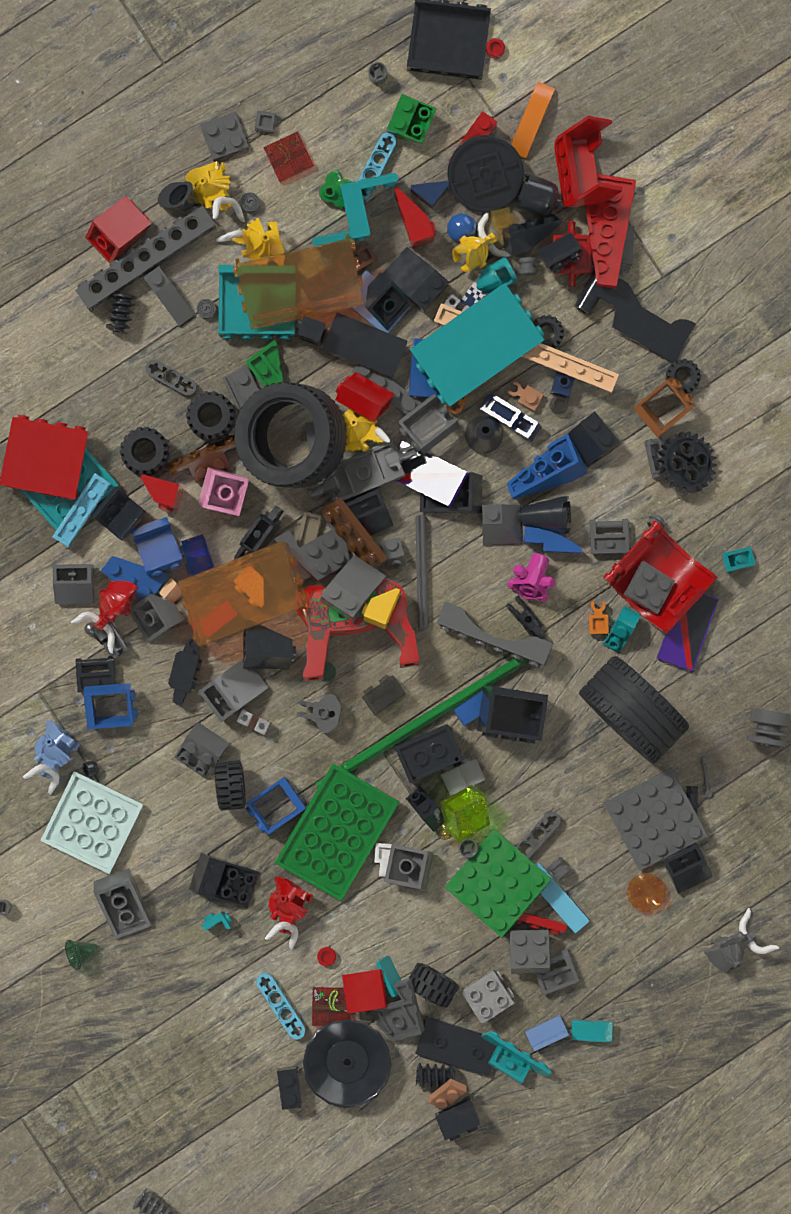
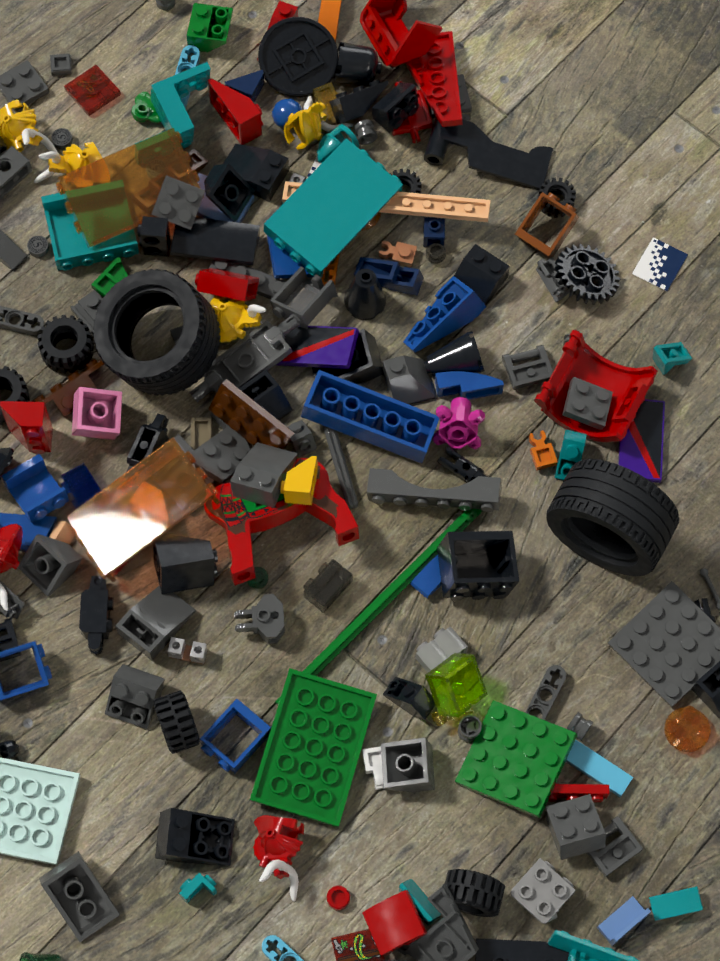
camera: 15 degrees left, 20 degrees down
(338, 307) = (178, 202): none -> dark grey plate
(428, 753) = (395, 628): black container -> none
(457, 554) = (370, 416): none -> blue brick
(757, 463) = (660, 264): none -> sticker

